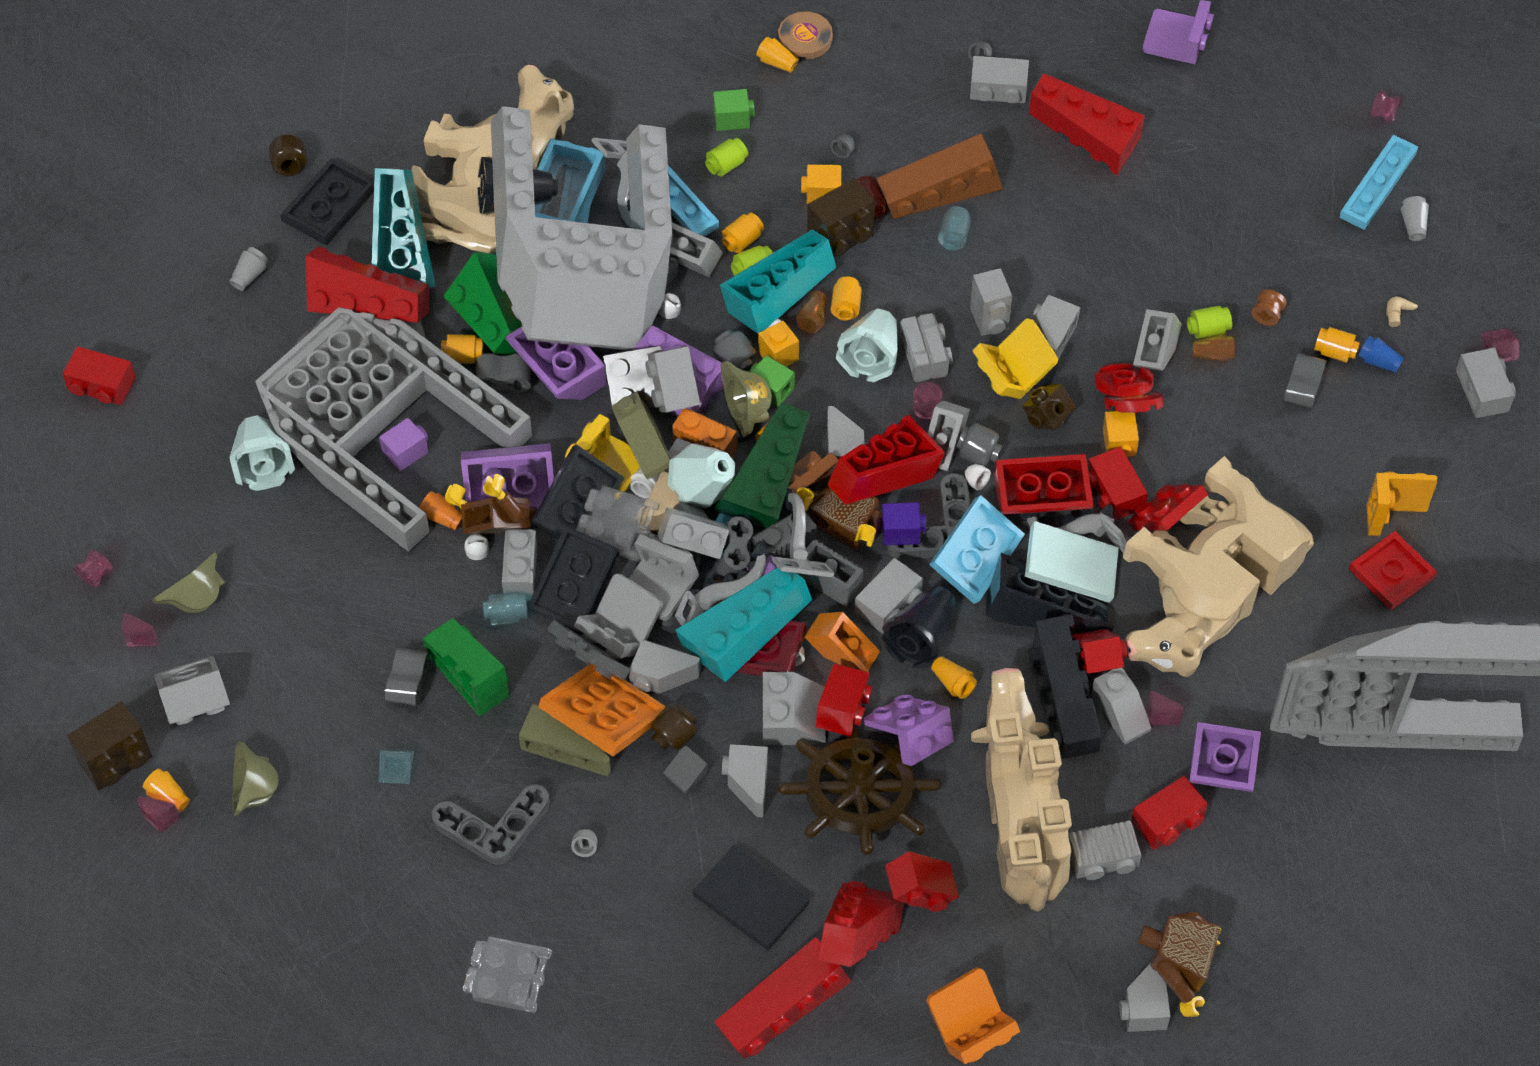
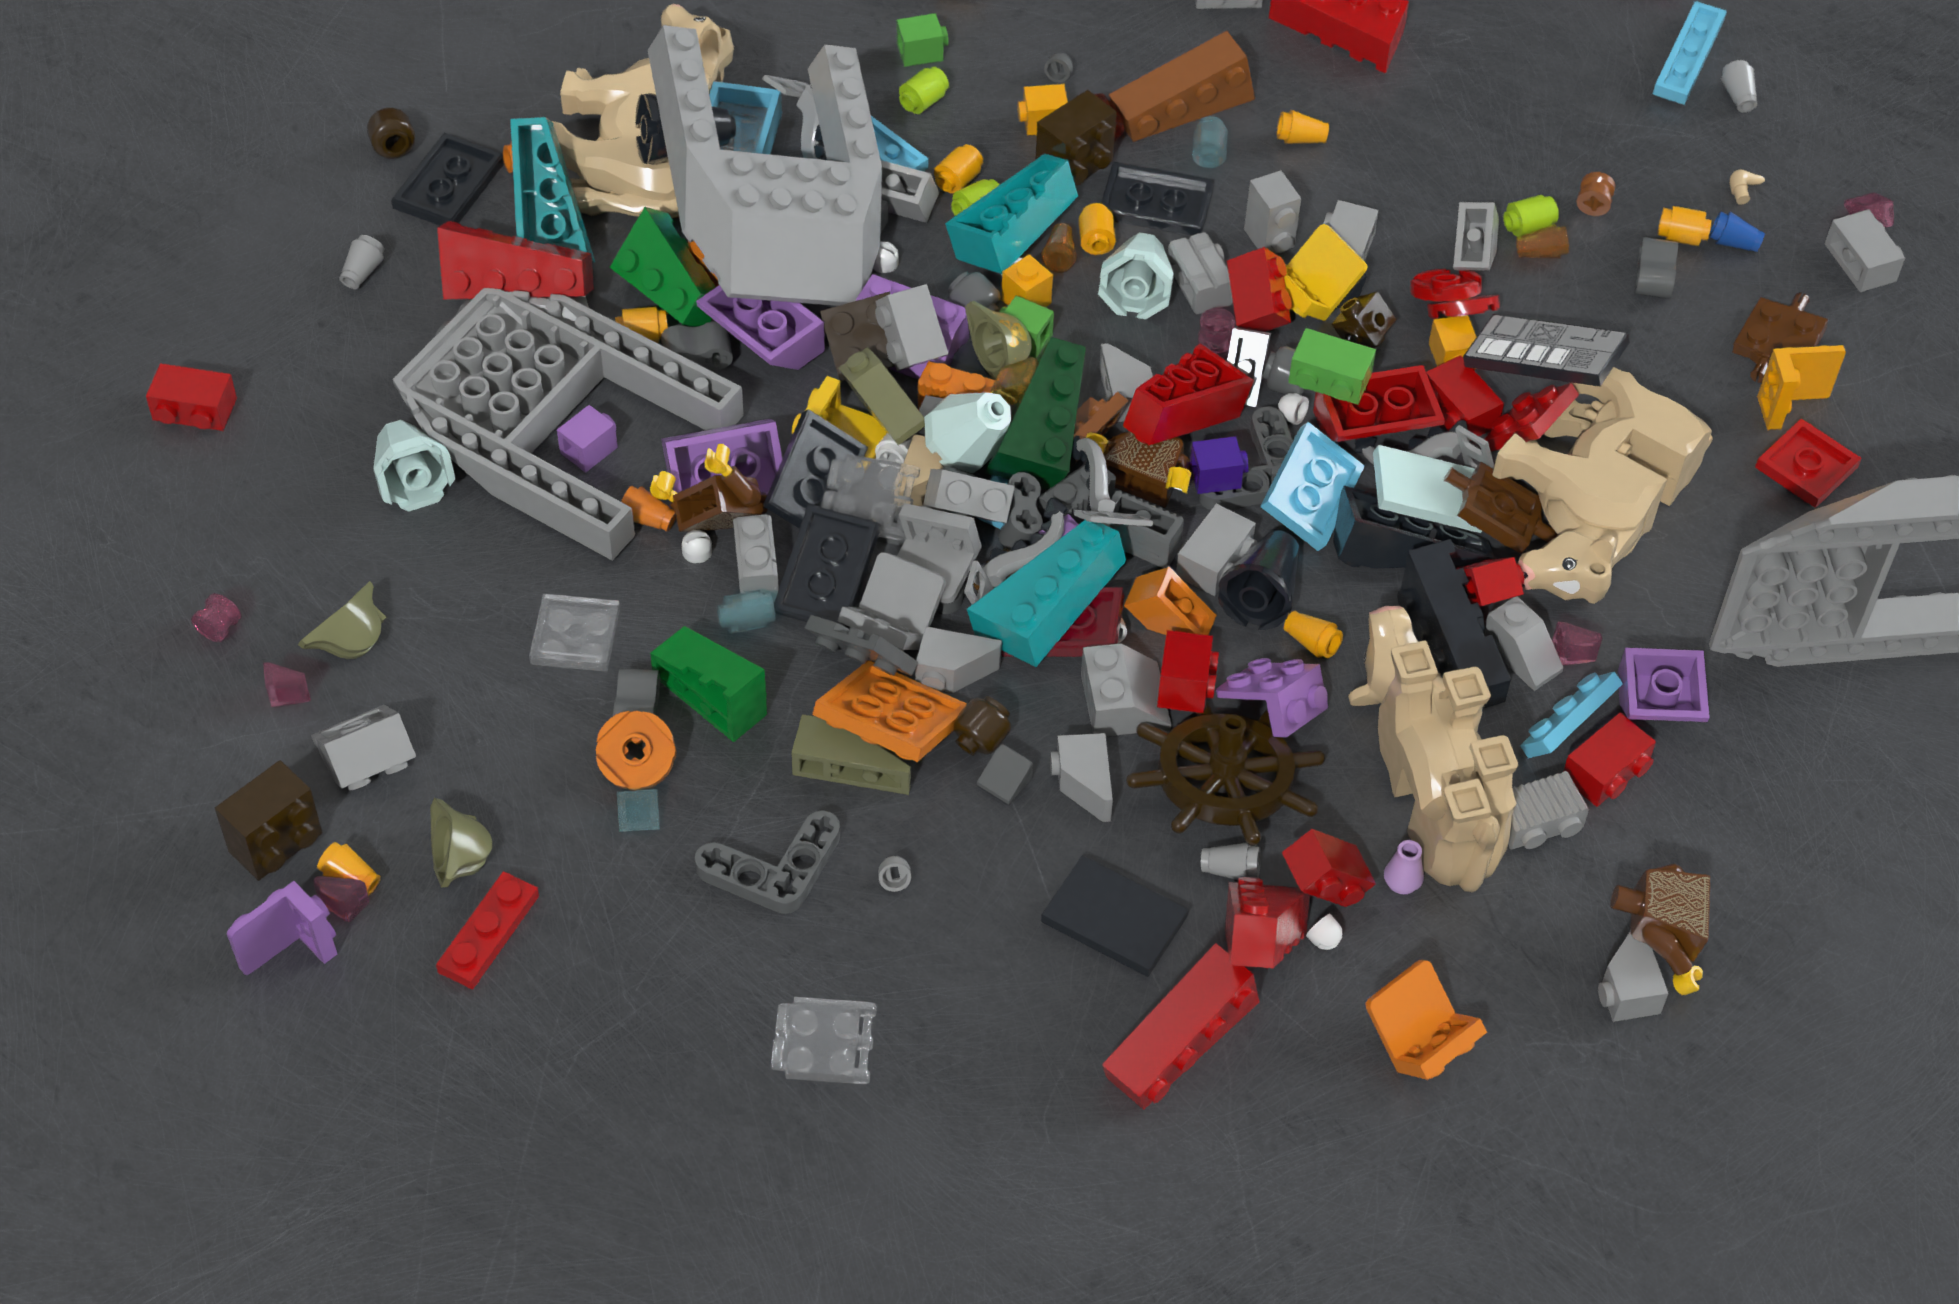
camera: 10 degrees left, 5 degrees down
(103, 833) = (279, 923): none -> medium lavender bracket
(265, 852) = (487, 930): none -> red plate
(369, 611) = (574, 632): none -> clear plate
(381, 715) = (635, 727): none -> orange plate
(748, 433) = (1014, 379): none -> clear yellow slope
(851, 864) = (1232, 861): none -> light grey cone
(902, 274) = (1157, 198): none -> black tile
(913, 932) = (1325, 933): none -> white hinge
(966, 371) = (1259, 290): none -> red brick
(985, 887) = (1405, 869): none -> lavender cone
(1007, 450) = (1331, 366): none -> bright green brick
(1033, 222) = (1300, 128): none -> light orange cone
(1125, 585) = (1500, 507): none -> reddish brown plate
(1146, 770) = (1570, 714): none -> medium azure plate
(1187, 453) = (1546, 350): none -> tile
(1396, 449) = (1777, 327): none -> reddish brown plate

